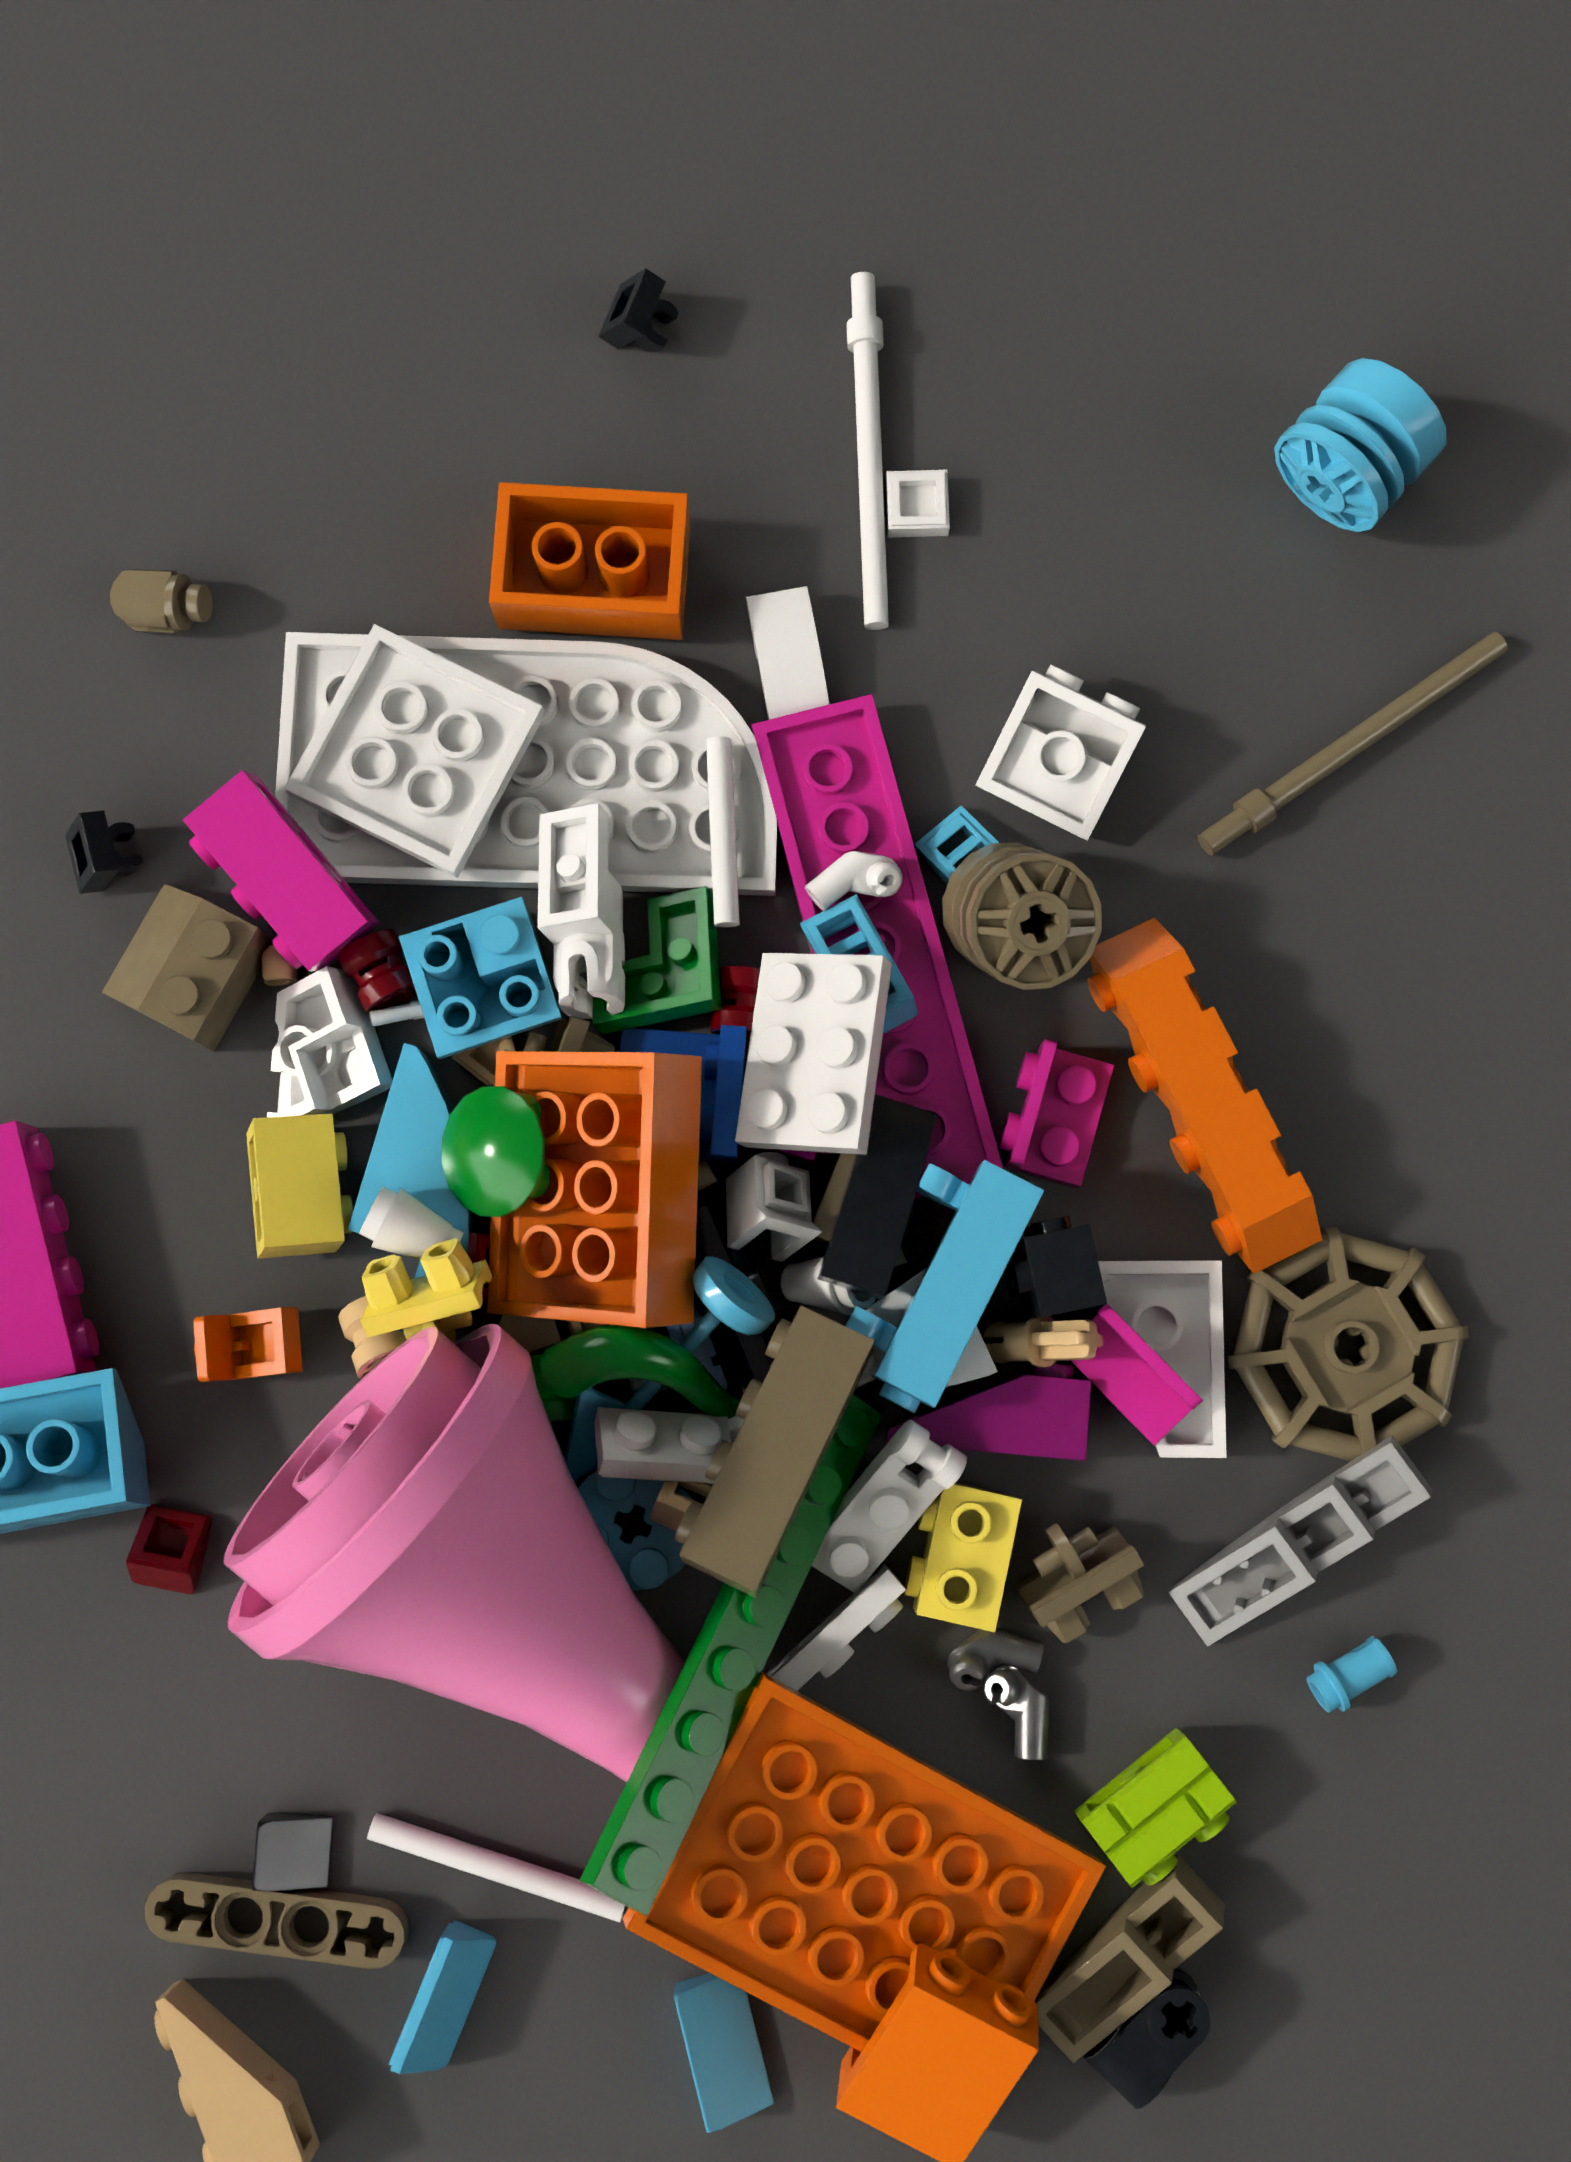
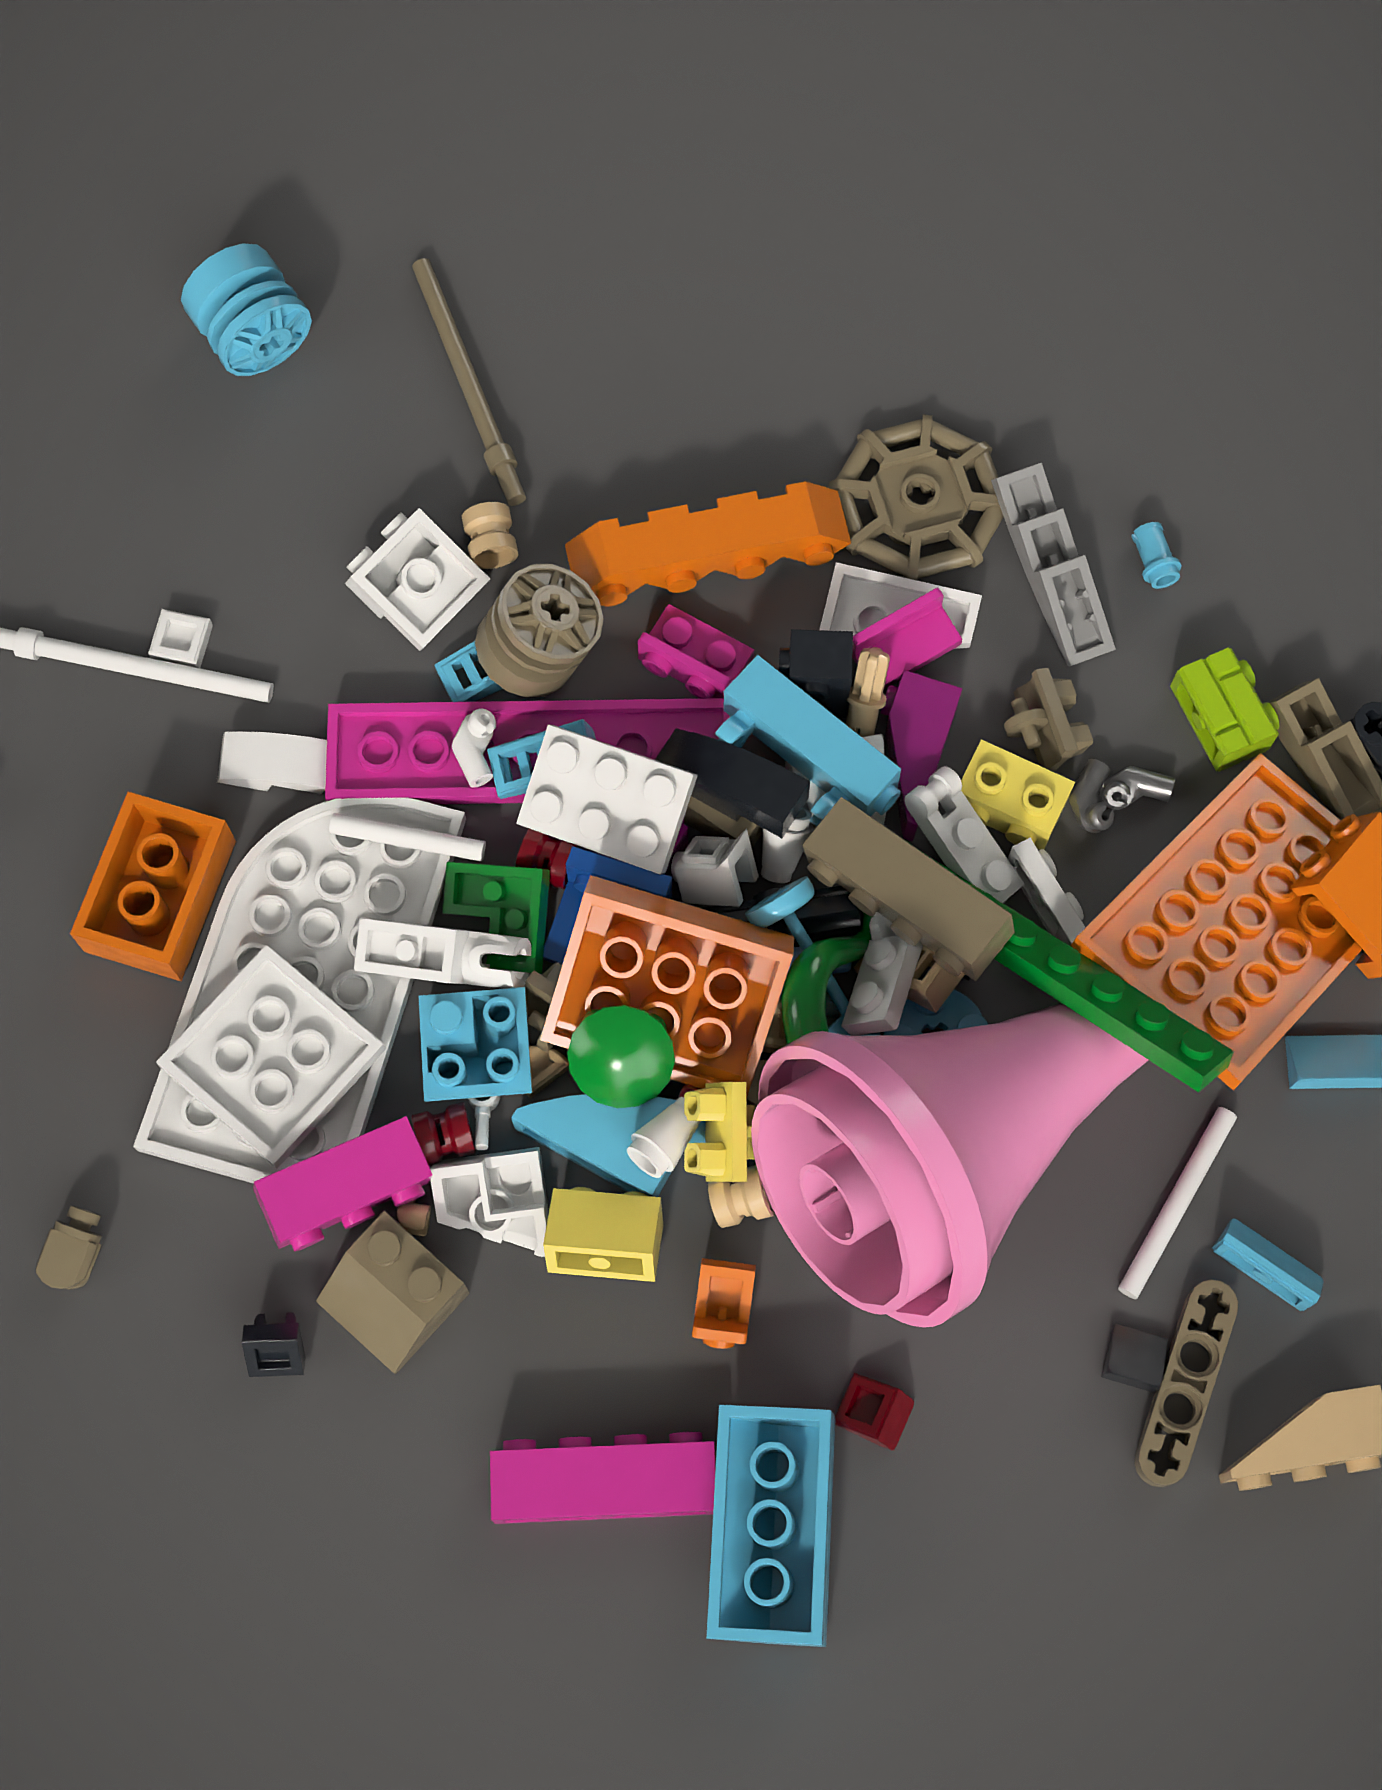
camera: 75 degrees left, 10 degrees down
(1146, 823) = (489, 533): none -> tan wheel

